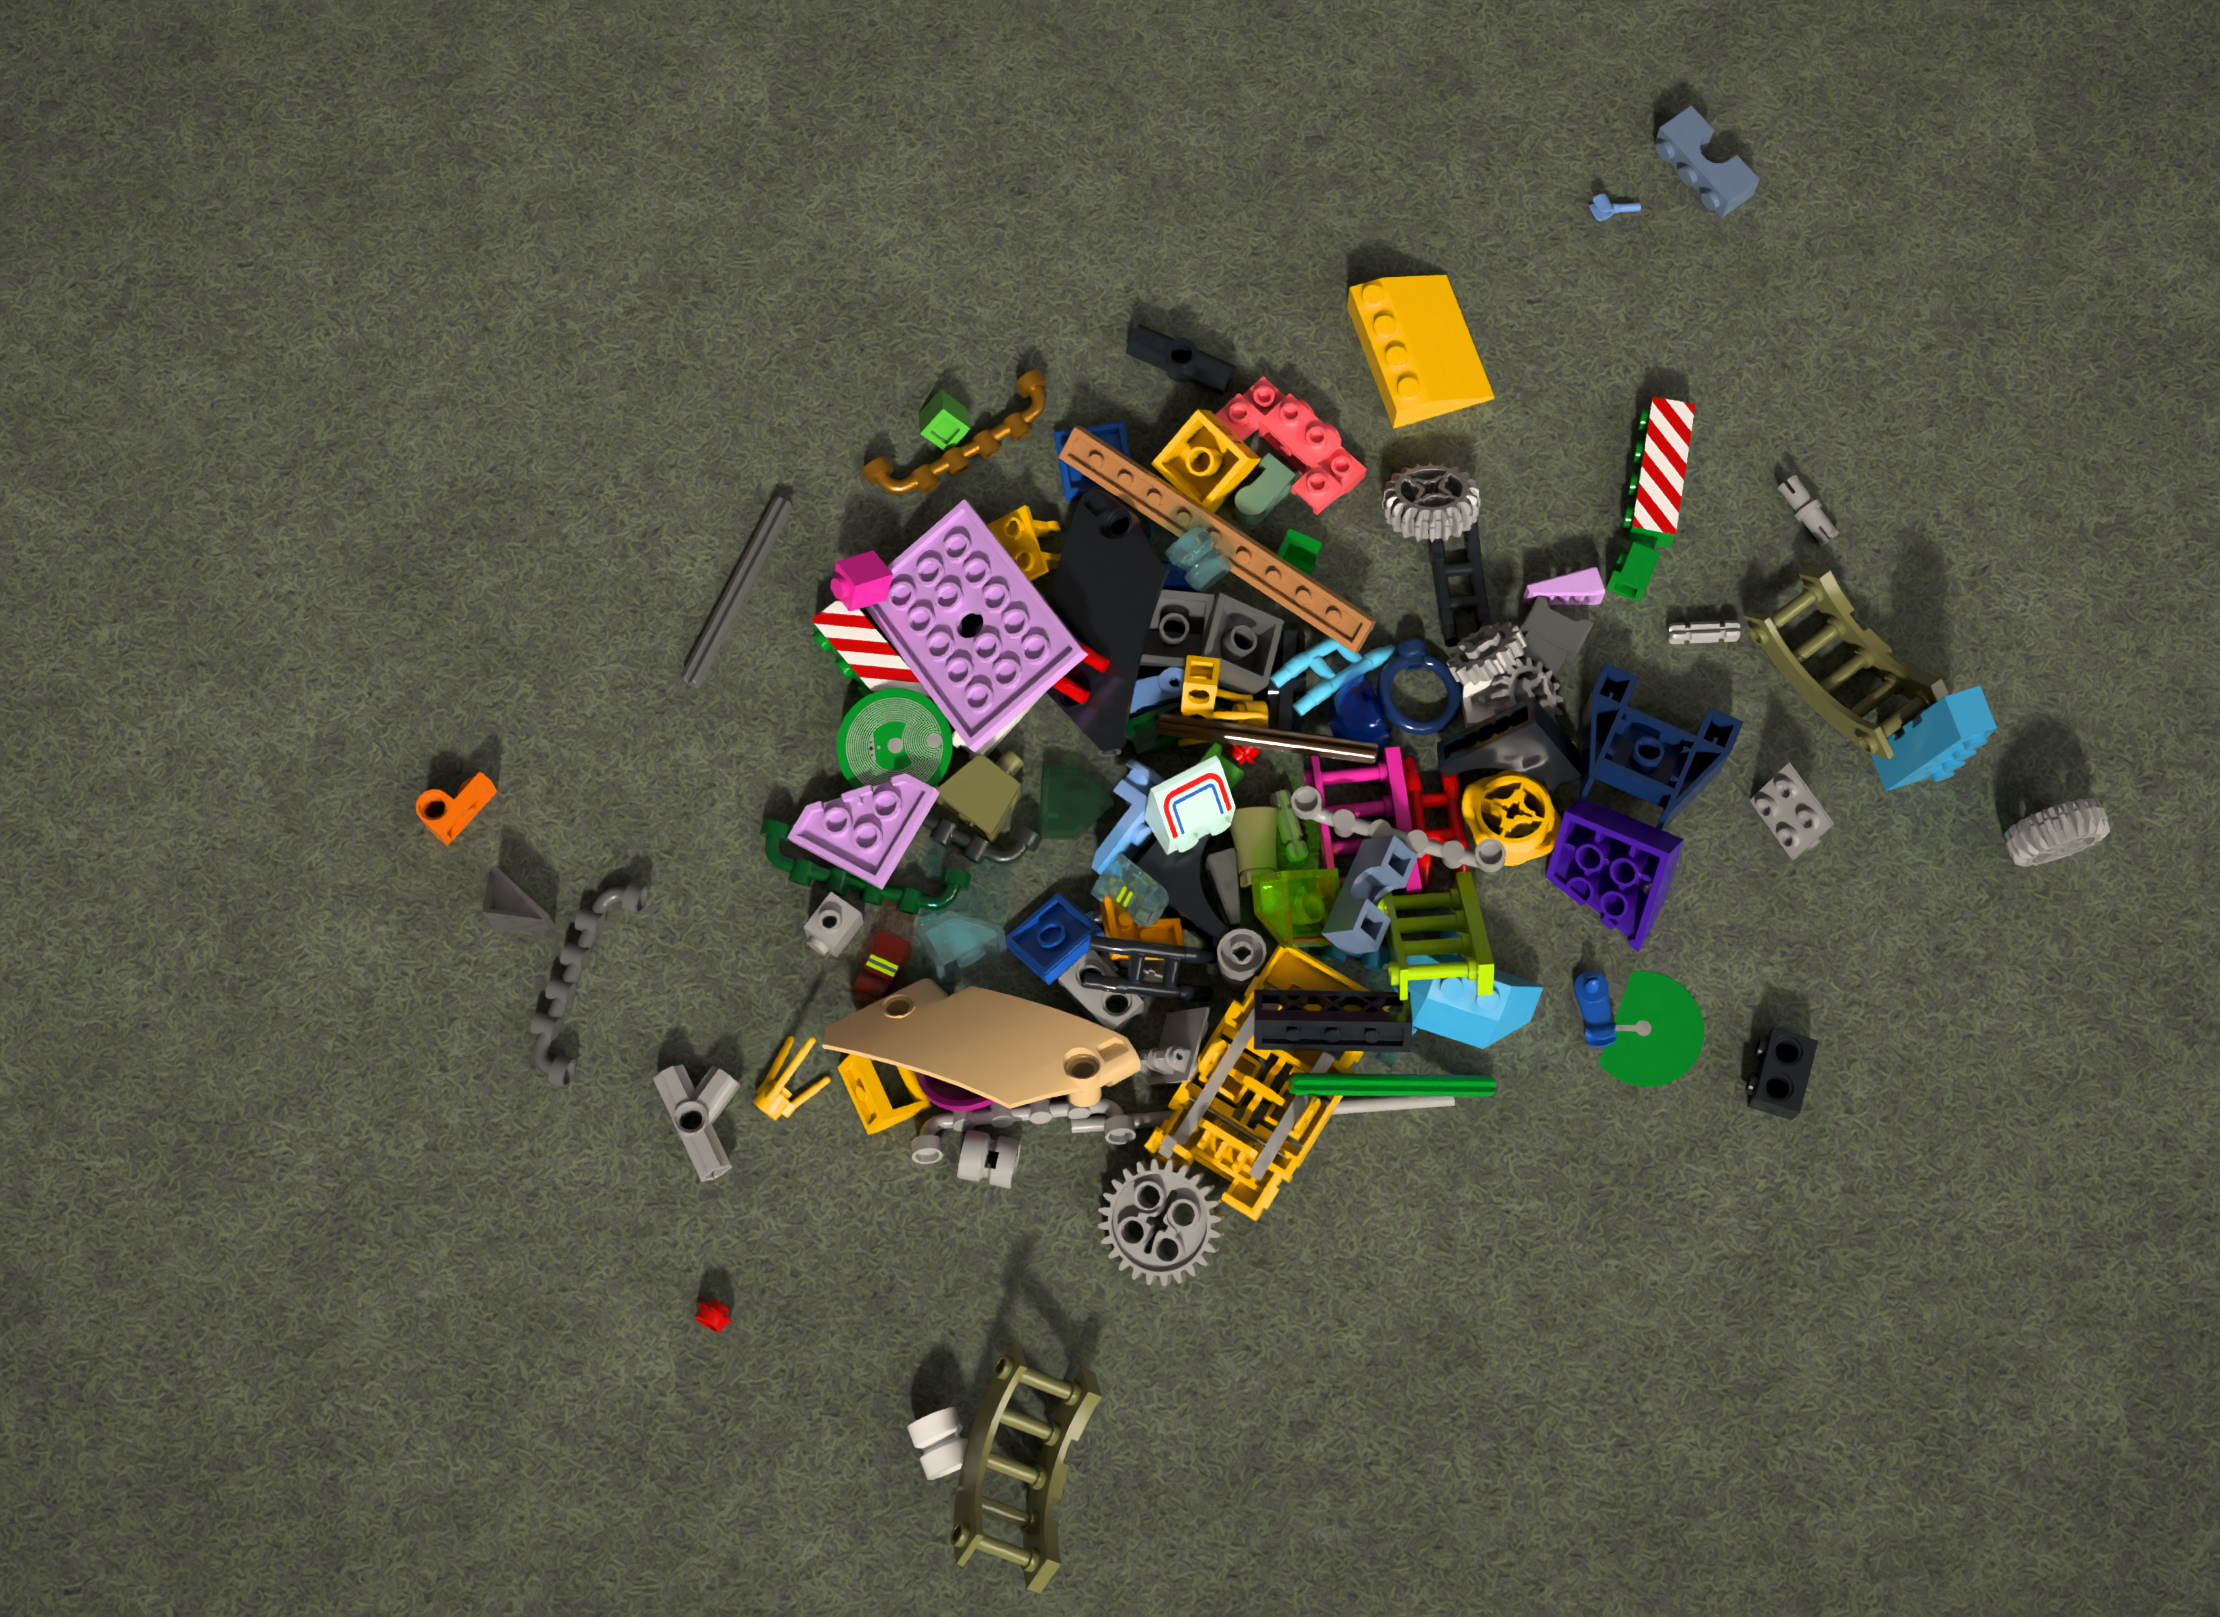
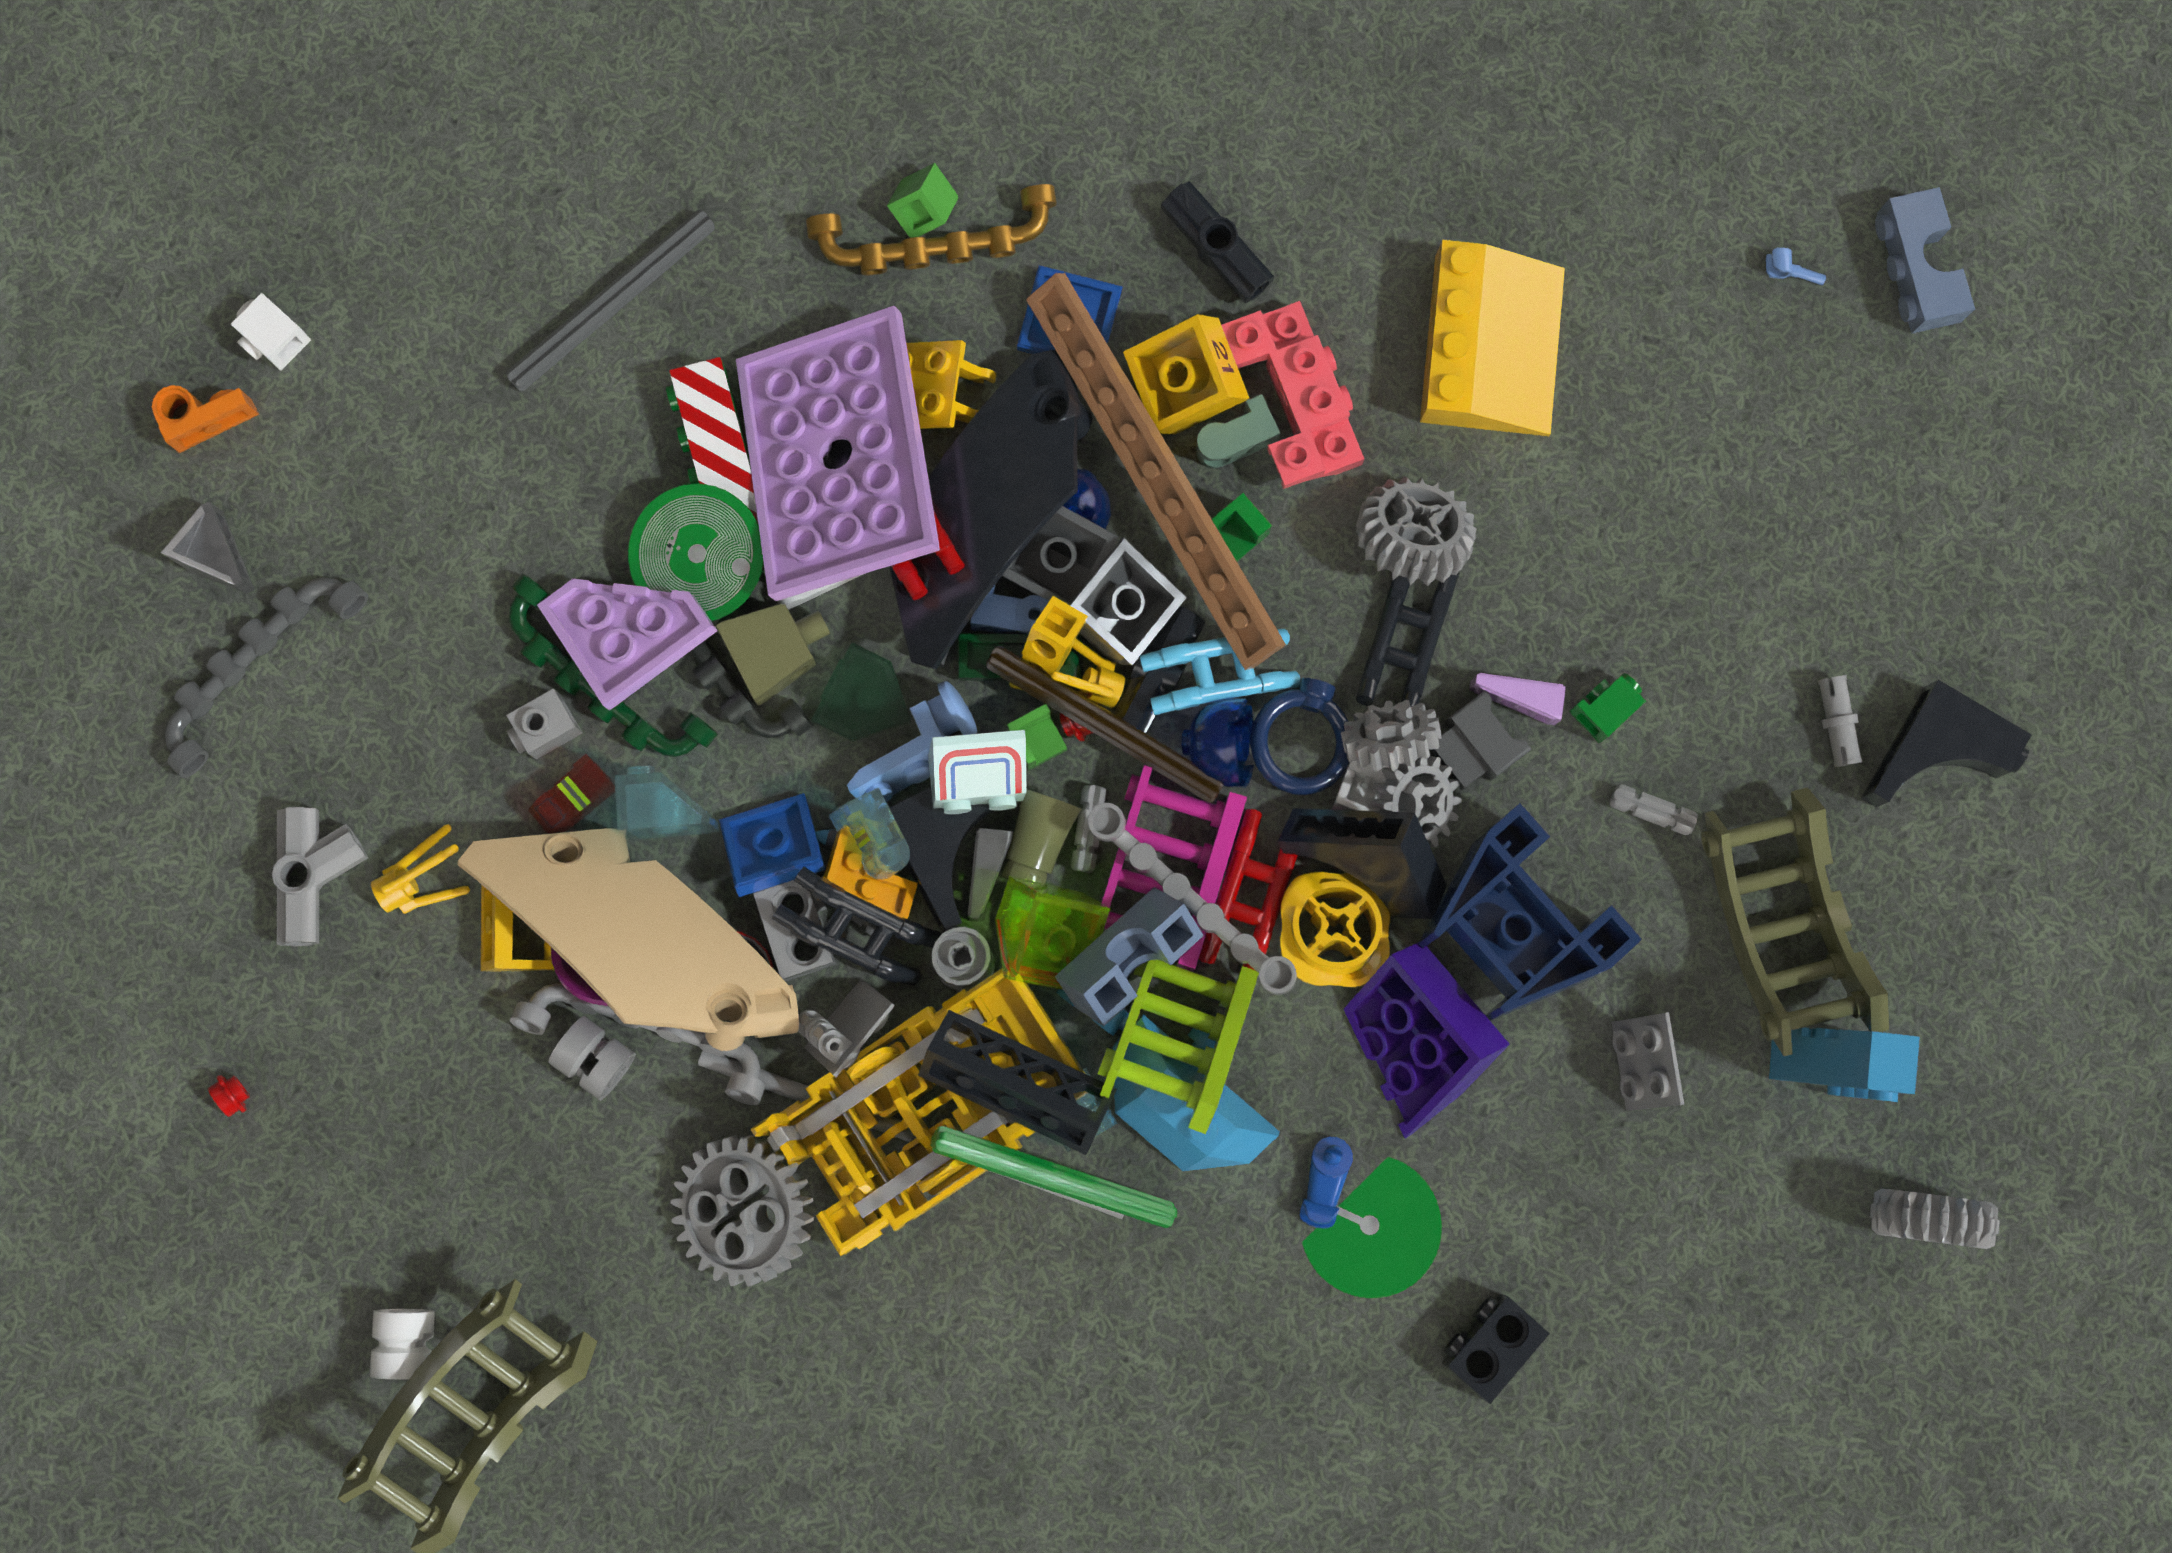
camera: 20 degrees right, 10 degrees up
(481, 723) = (268, 332): none -> white brick
(861, 581) = (739, 350): dark pink brick -> none
(1199, 559) = (1121, 488): clear light blue wheel -> none
(1660, 472) = (1693, 605): brick -> none
(1891, 483) = (1948, 731): none -> black arch

